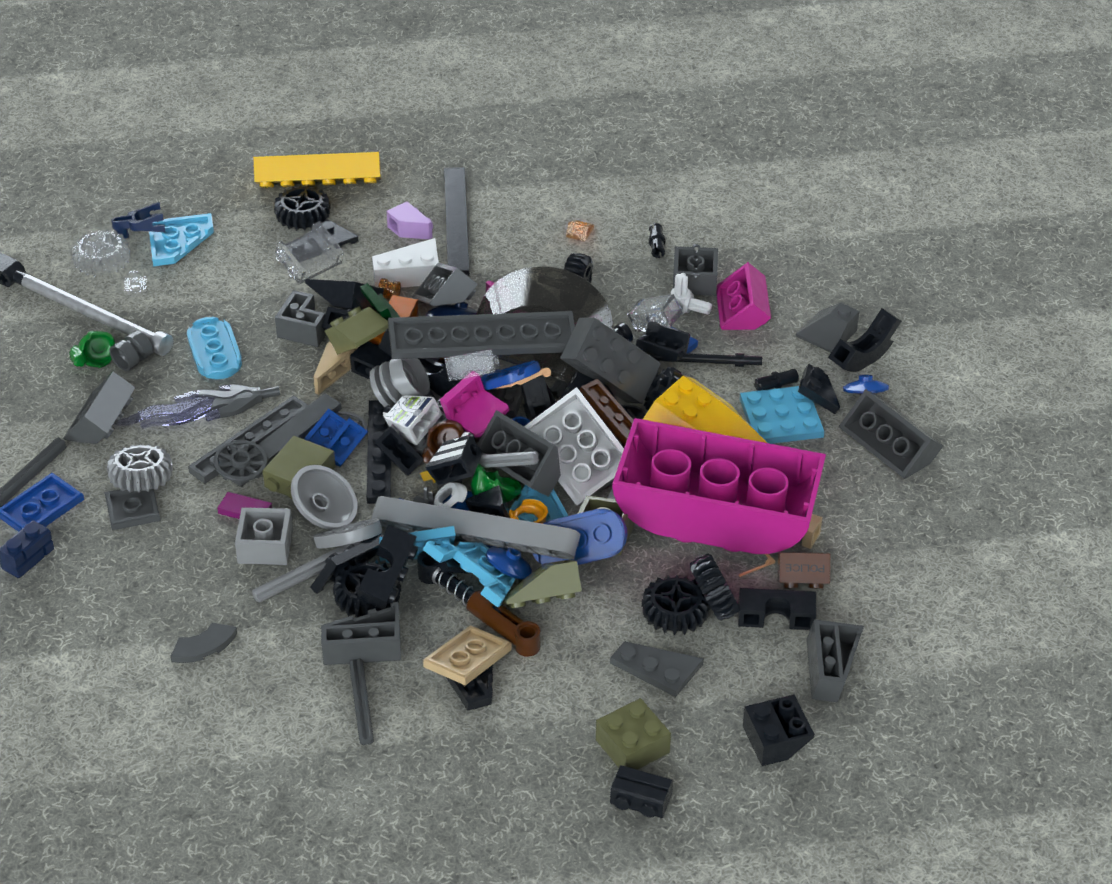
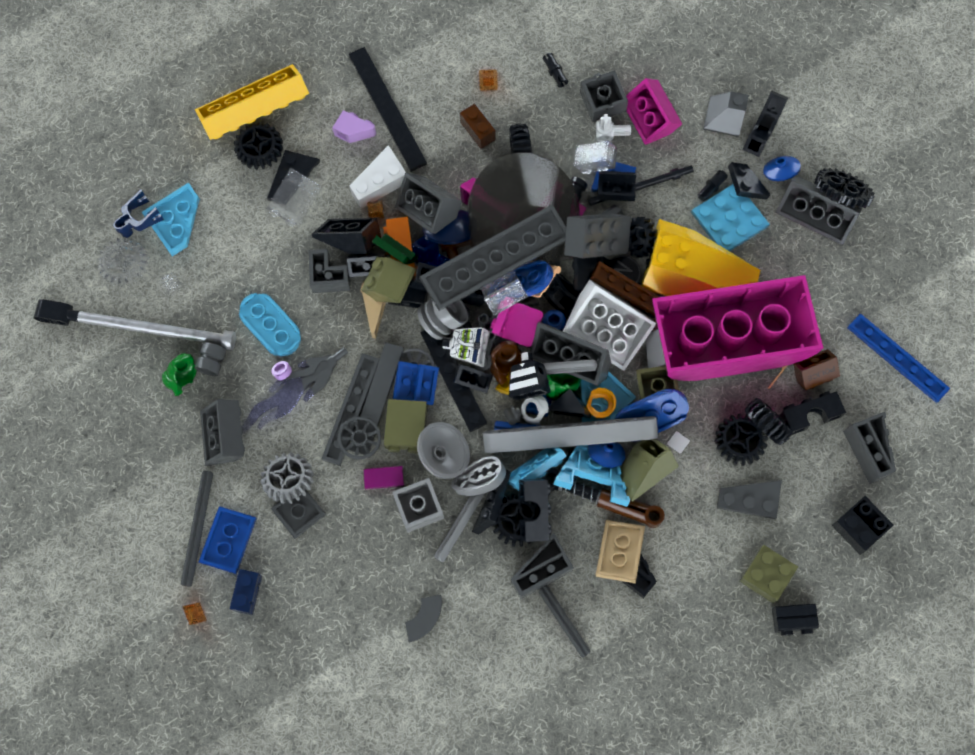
camera: 20 degrees left, 30 degrees up
(198, 384) = (281, 370): none -> lavender tile
(541, 251) = (477, 126): none -> reddish brown brick
(601, 589) = (678, 442): none -> white sticker
(916, 598) = (898, 358): none -> blue tile
(927, 418) = (844, 188): none -> black gear

